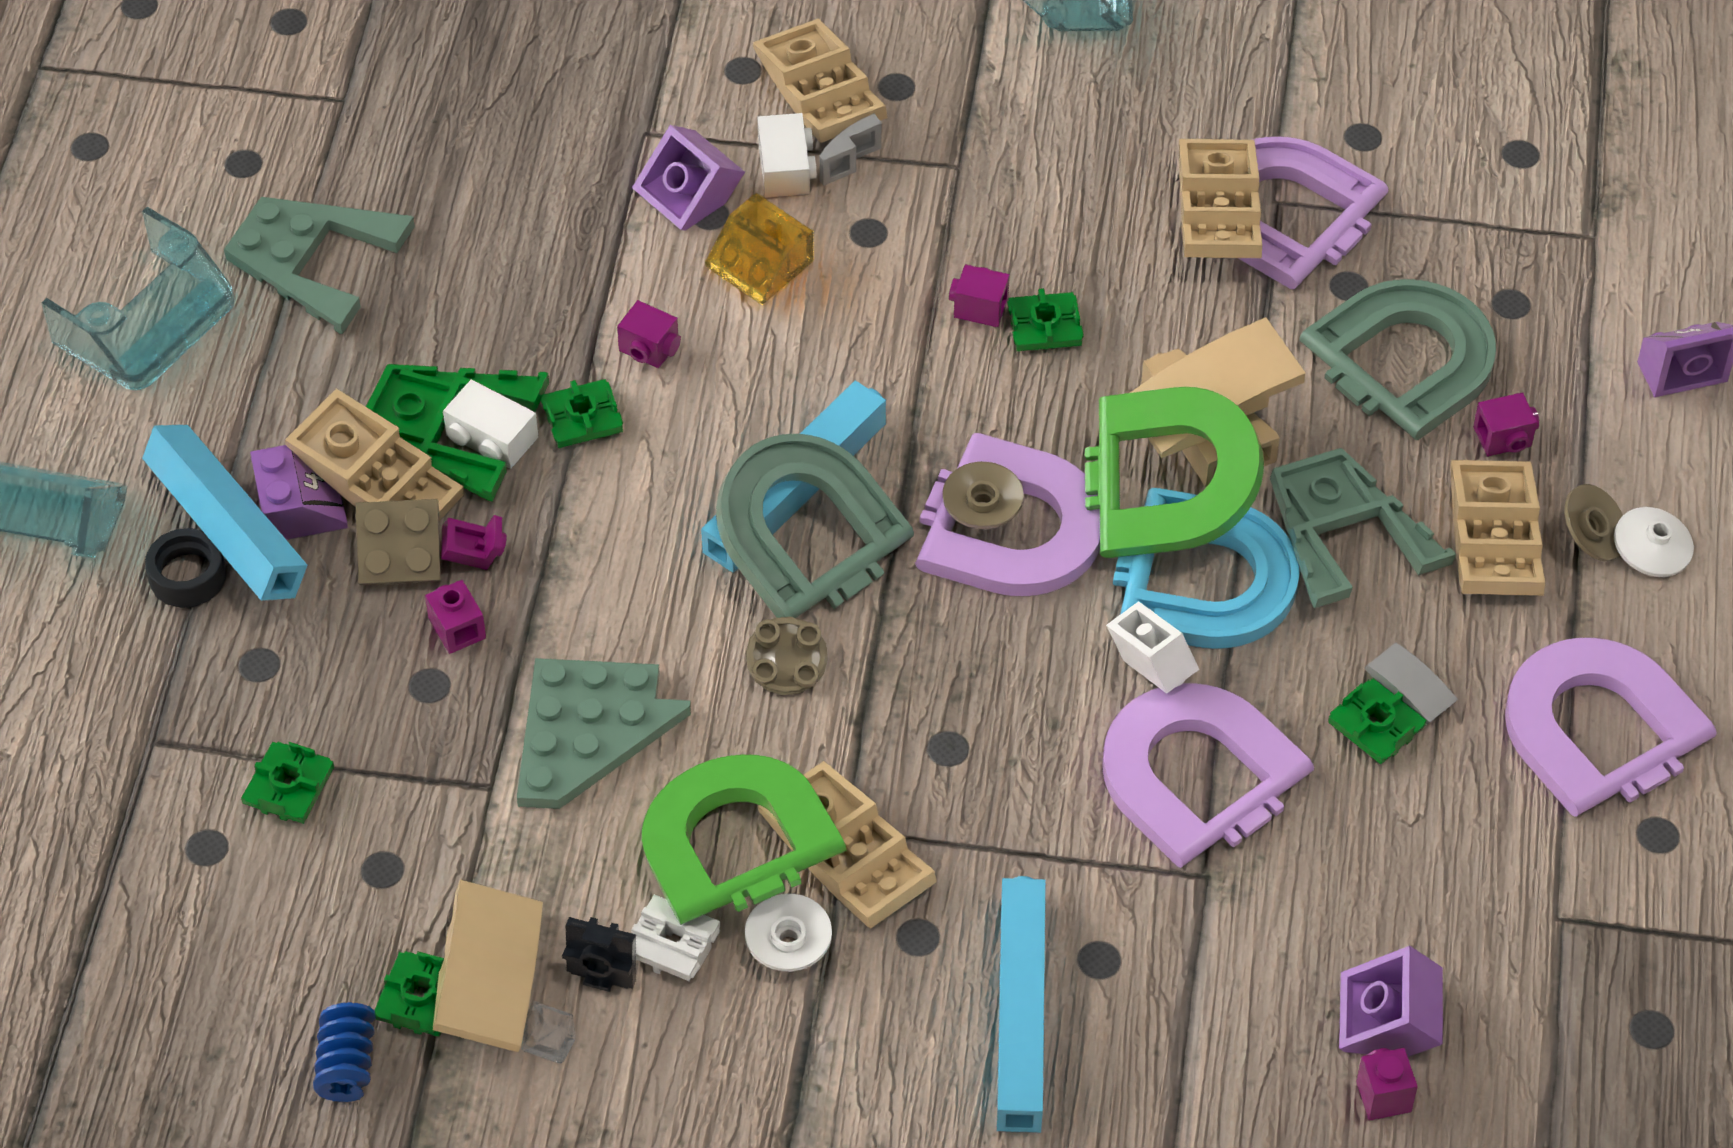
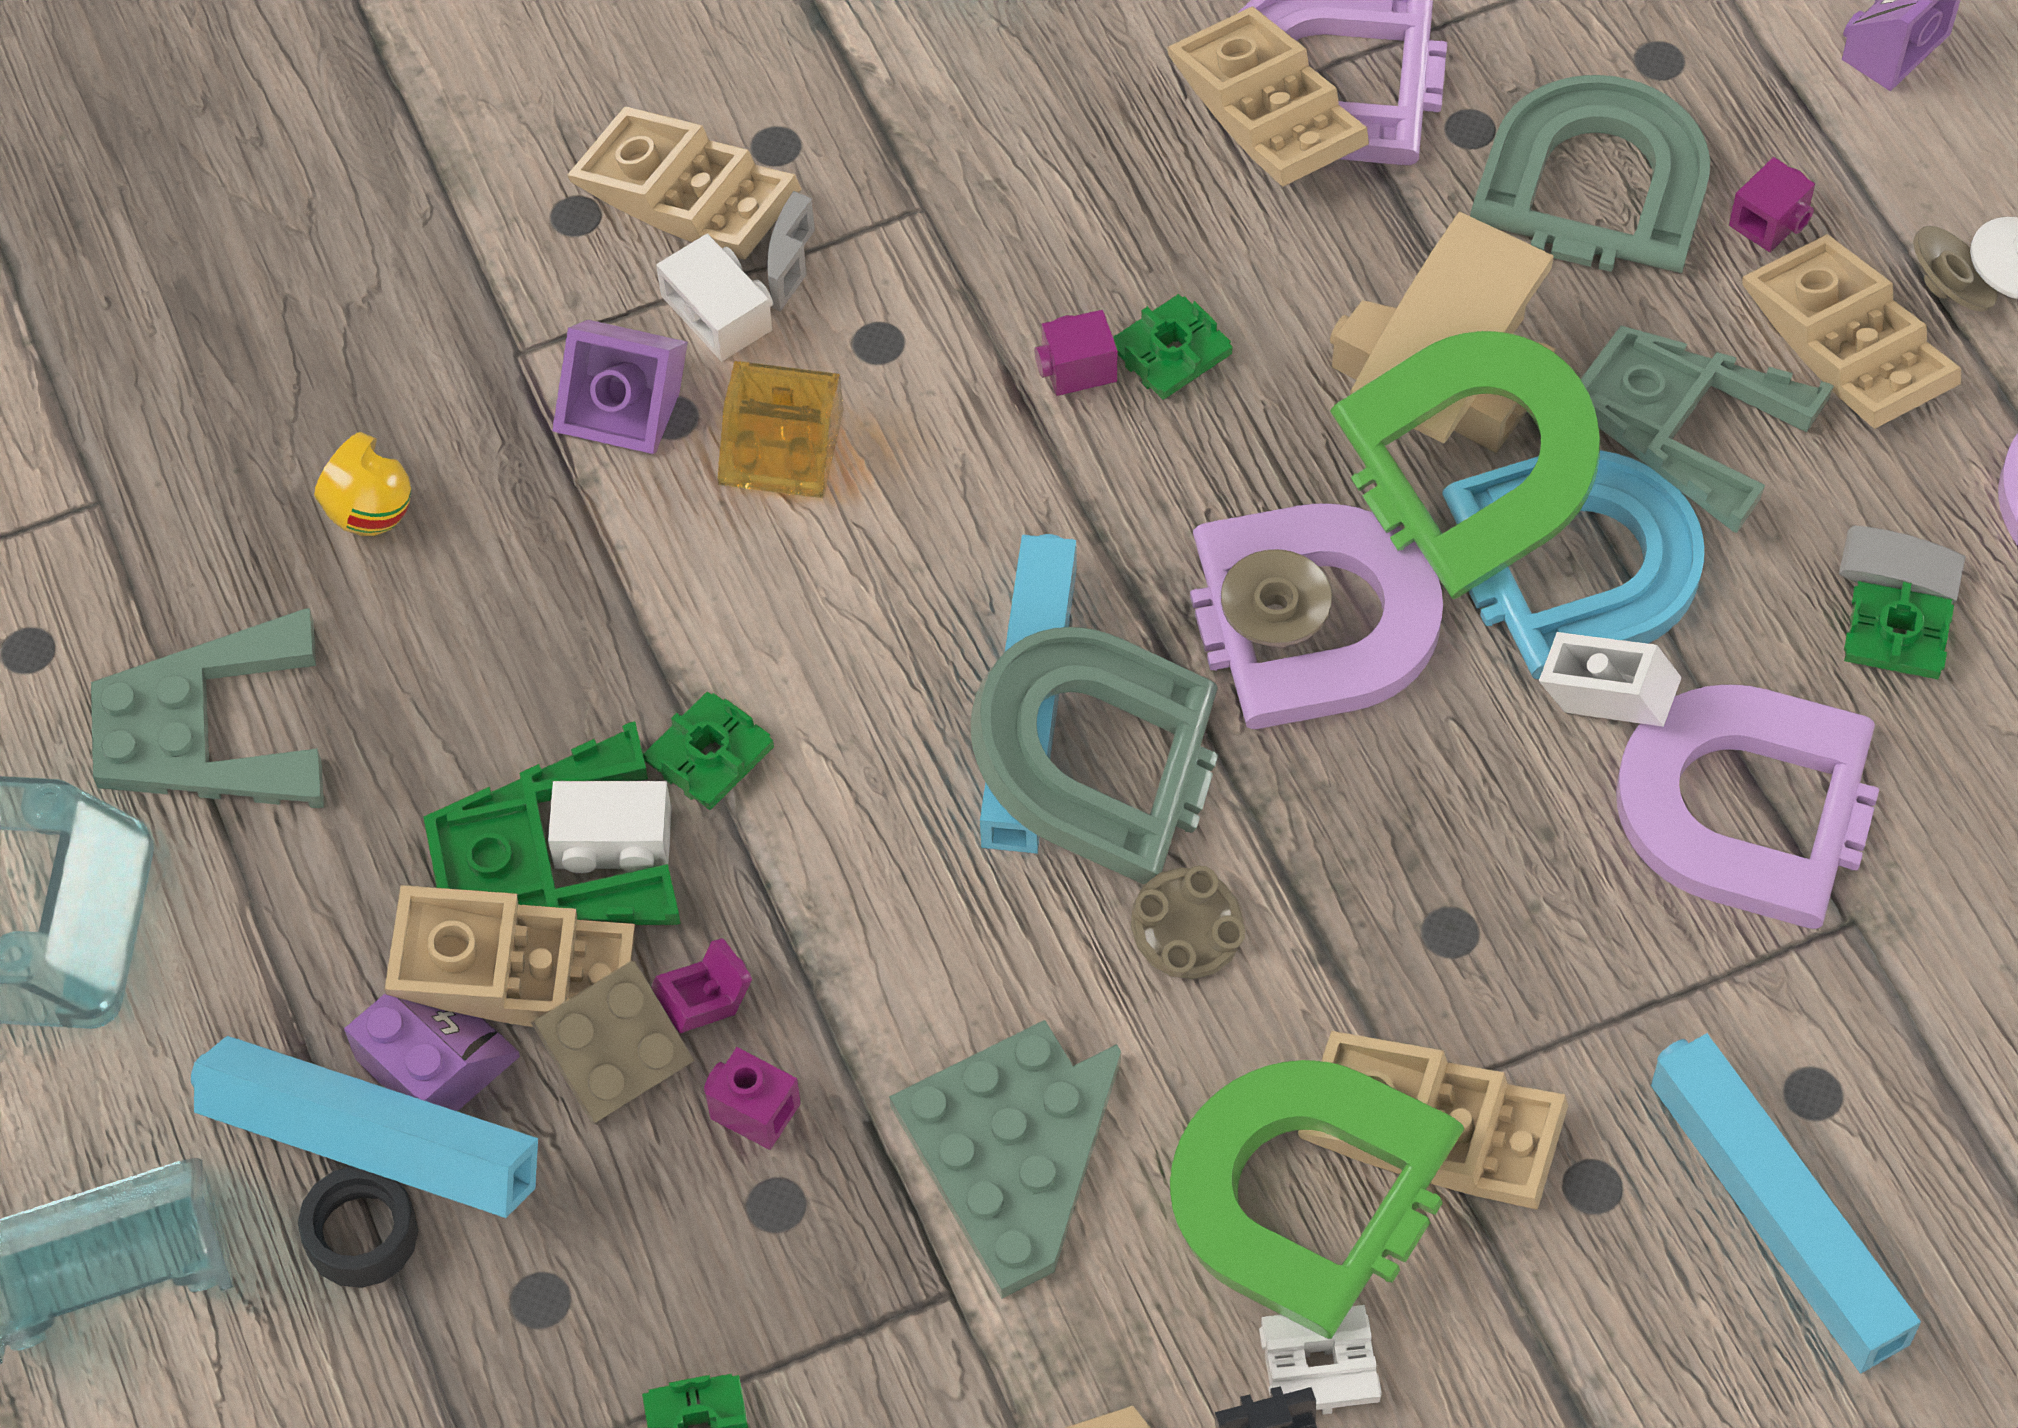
camera: 30 degrees left, 5 degrees up
(489, 161) = (363, 489): none -> yellow helmet
(648, 334) = (721, 607): magenta brick -> none
(788, 917) = (1461, 1247): white dish -> none

